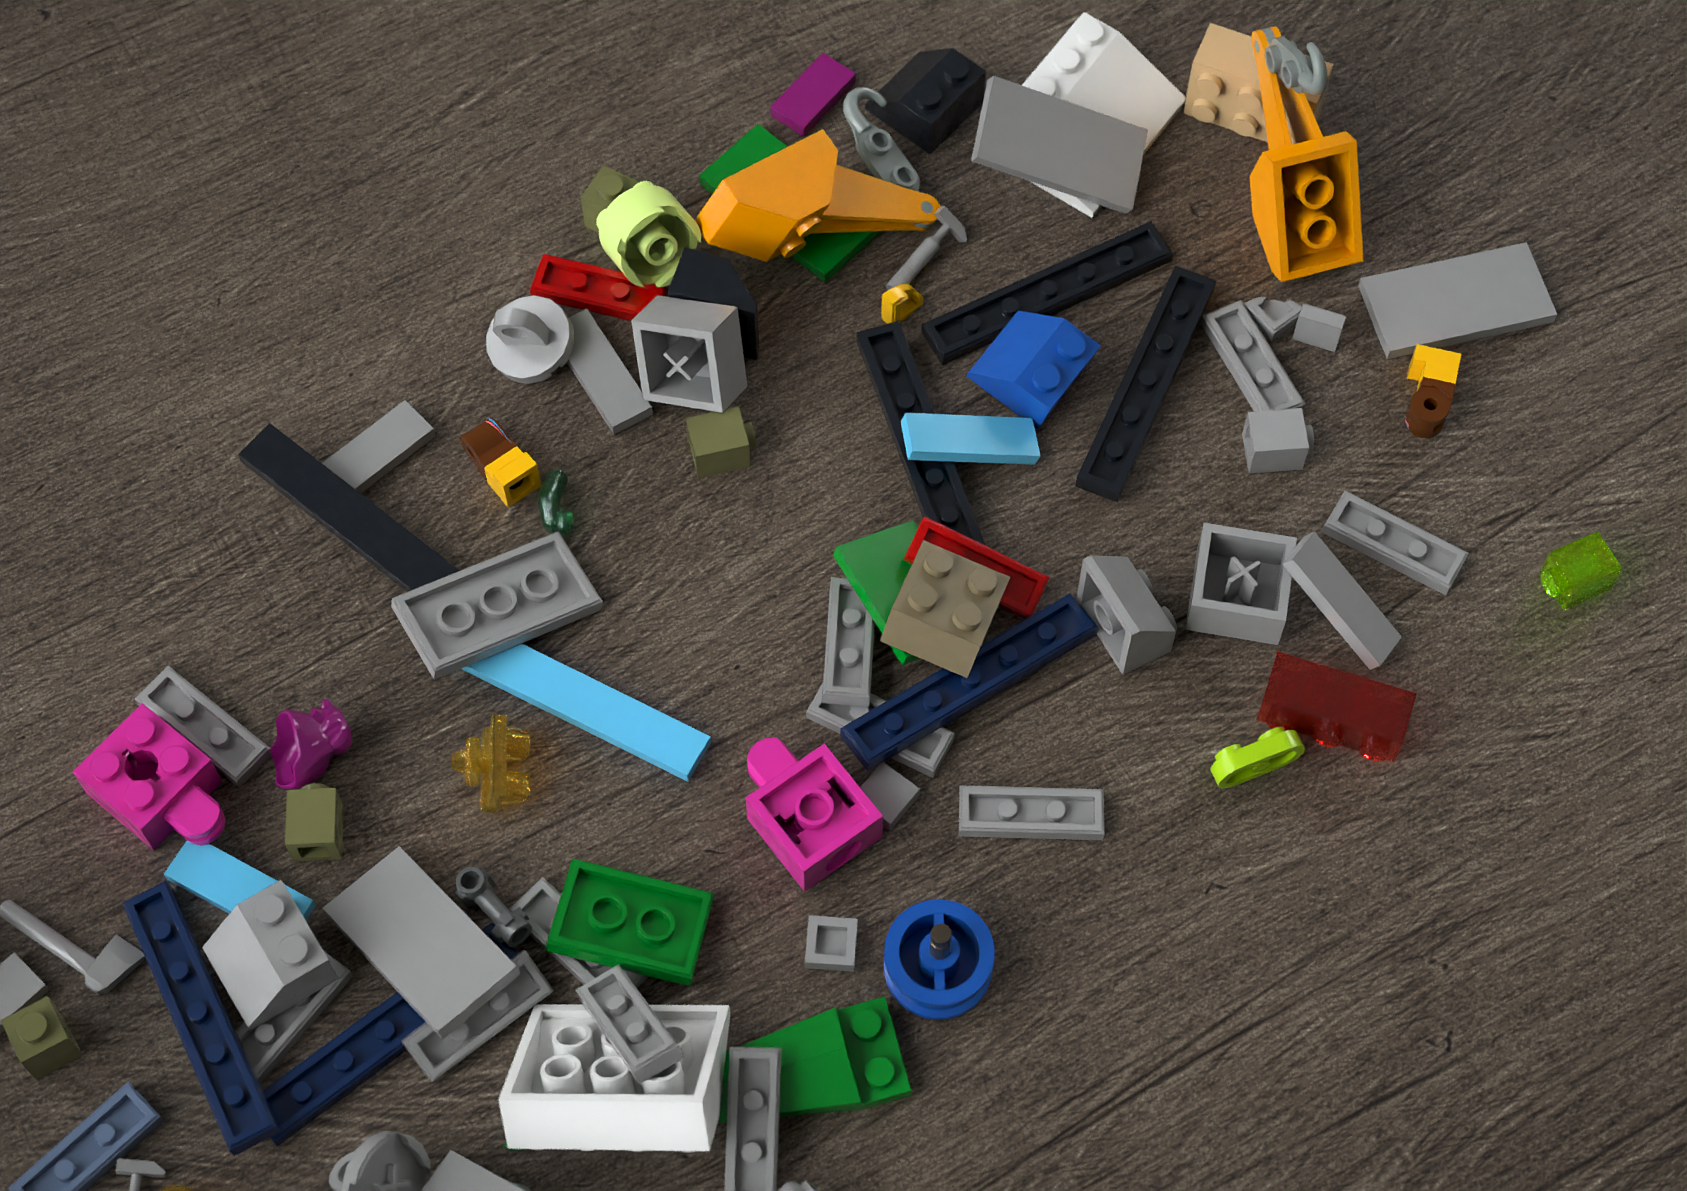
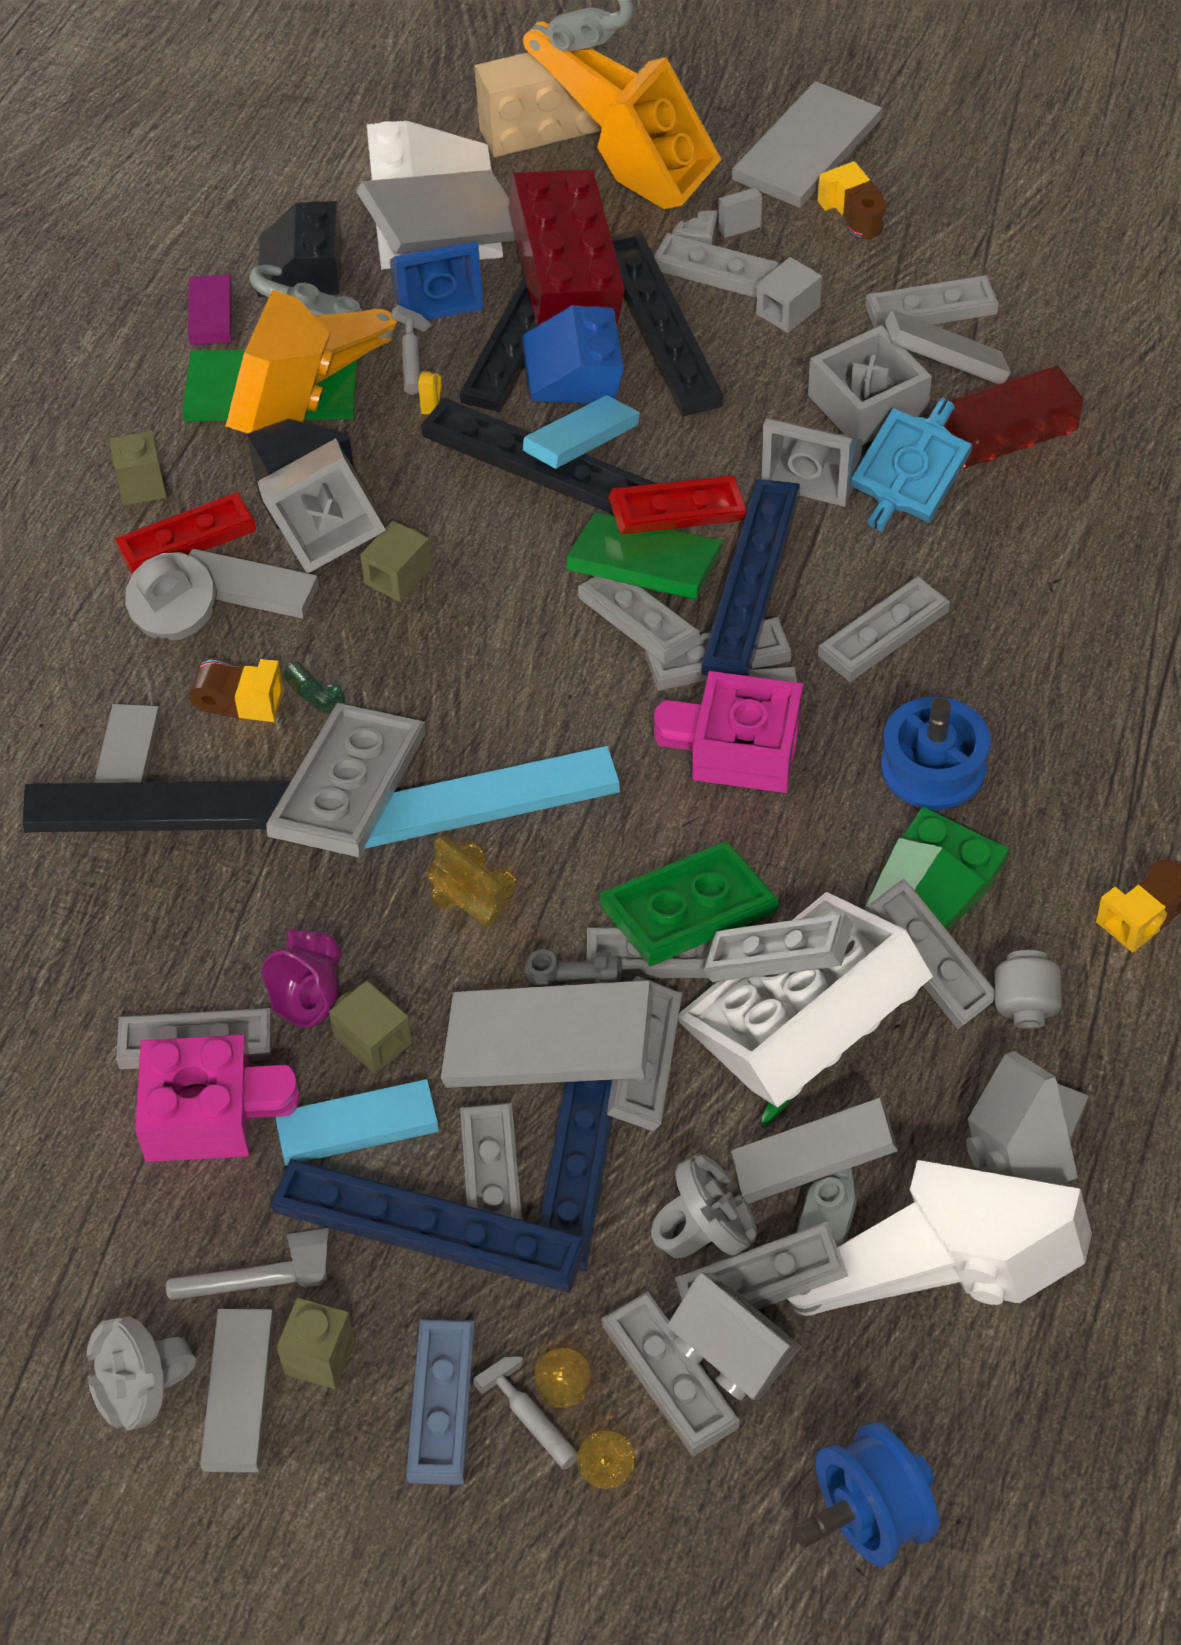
camera: 40 degrees left, 10 degrees down
(268, 956) = (443, 1131): light grey slope -> none
(647, 233) = (198, 458): yellowish green brick -> none
(831, 943) = (843, 809): light grey tile -> none
(944, 609) = (694, 532): dark tan brick -> none
(1000, 206) = (439, 280): none -> blue slope
(1128, 254) = (564, 242): none -> dark red brick
(1199, 685) = (911, 465): none -> dark azure plate
(1271, 751) = (1000, 473): lime plate -> none
(1579, 570) = (1068, 235): clear neon green brick -> none

